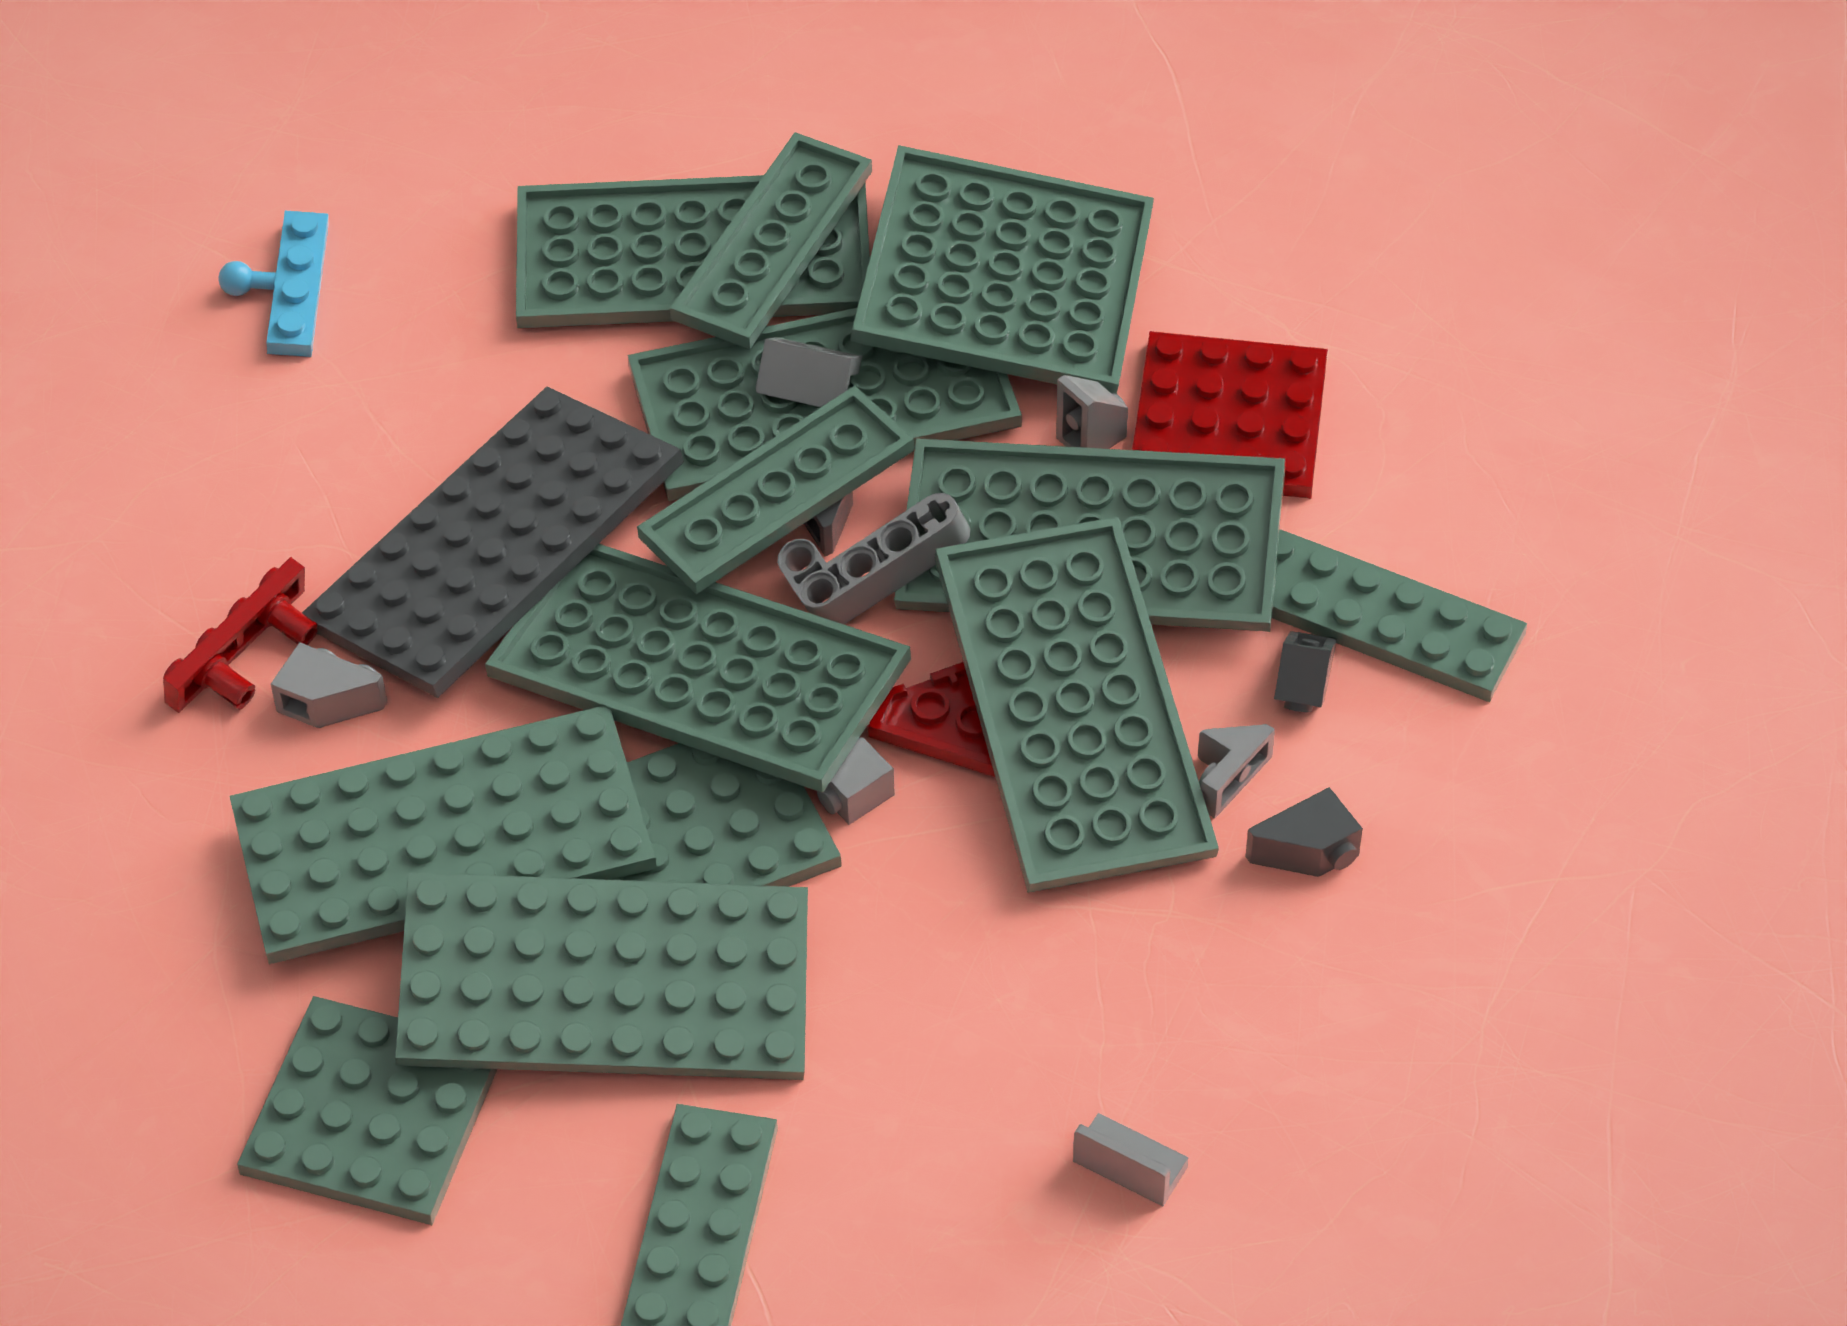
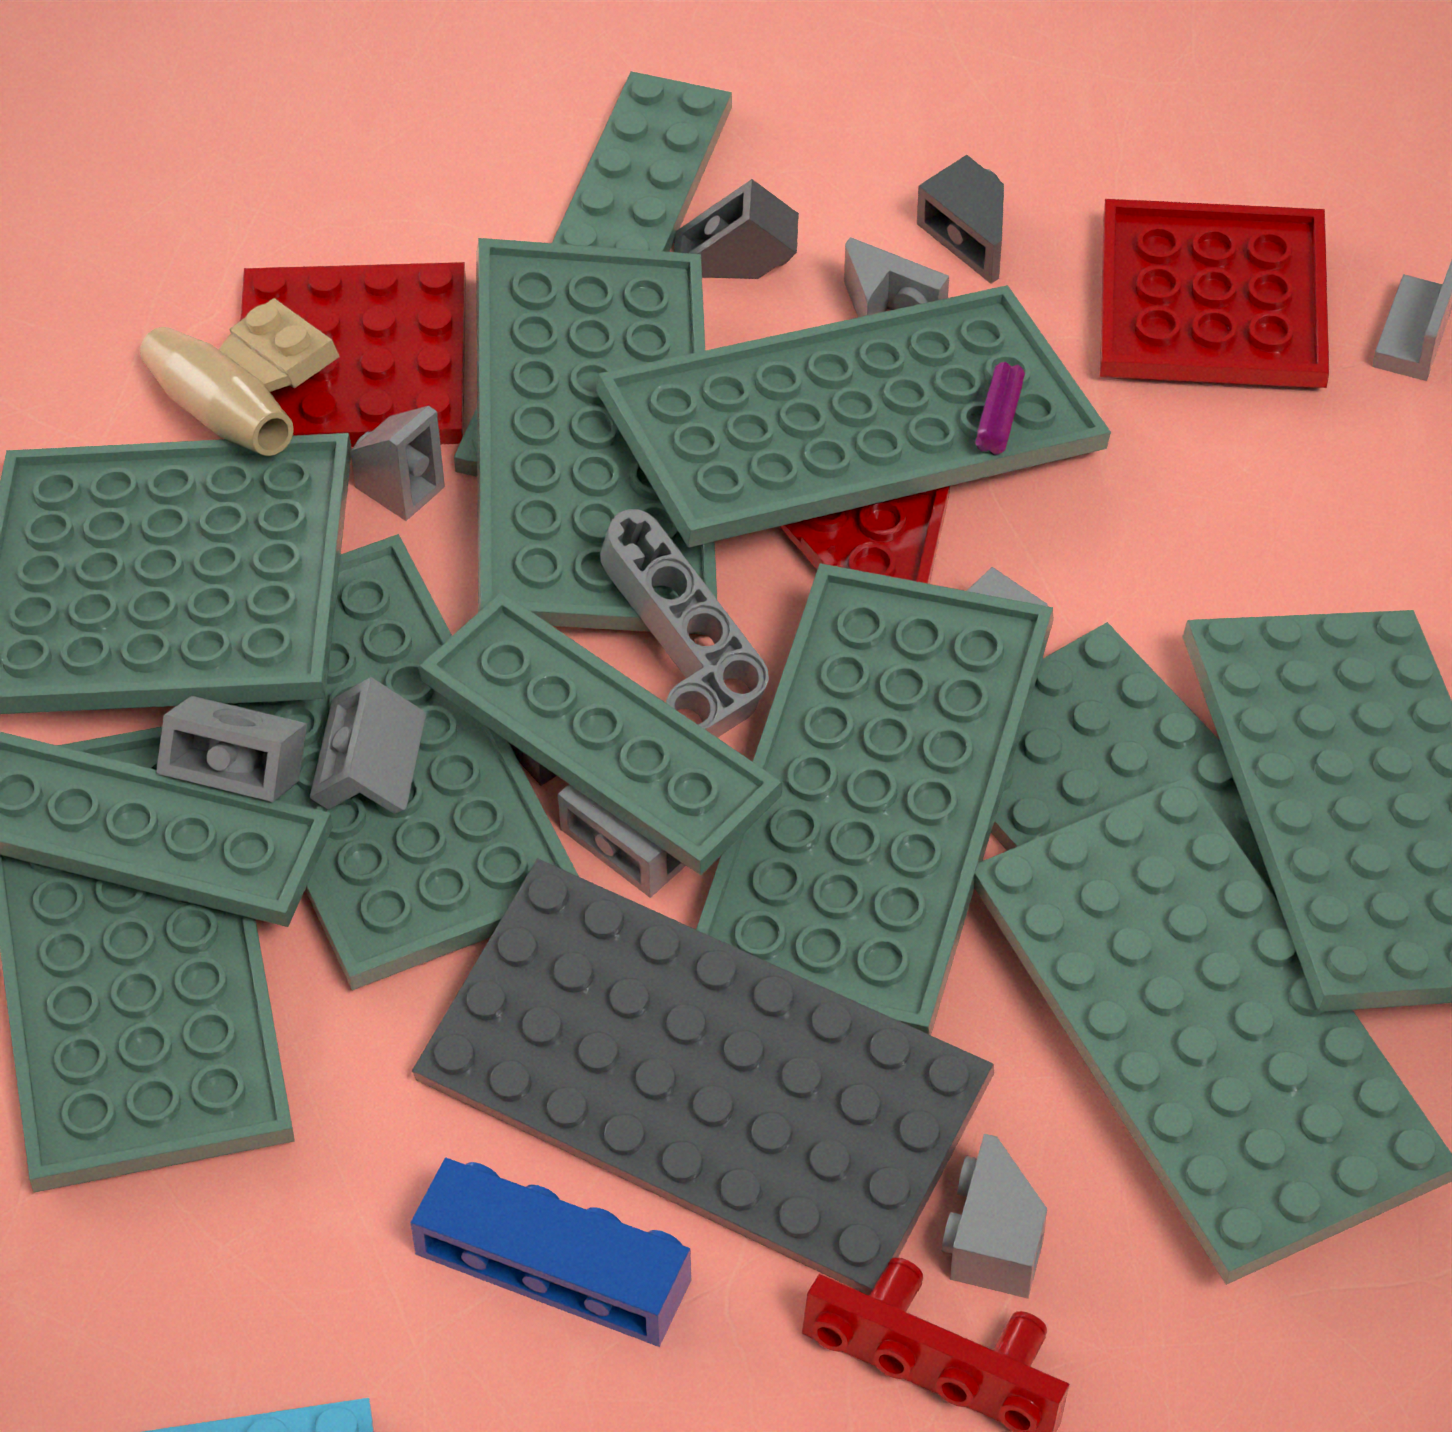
camera: 100 degrees left, 0 degrees up
(382, 444) = (552, 1250): none -> blue brick
(815, 285) = (231, 748): none -> light grey brick
(1050, 793) = (1000, 408): none -> magenta axle
(1191, 318) = (233, 384): none -> tan plate
(1191, 1006) = (1214, 293): none -> red plate

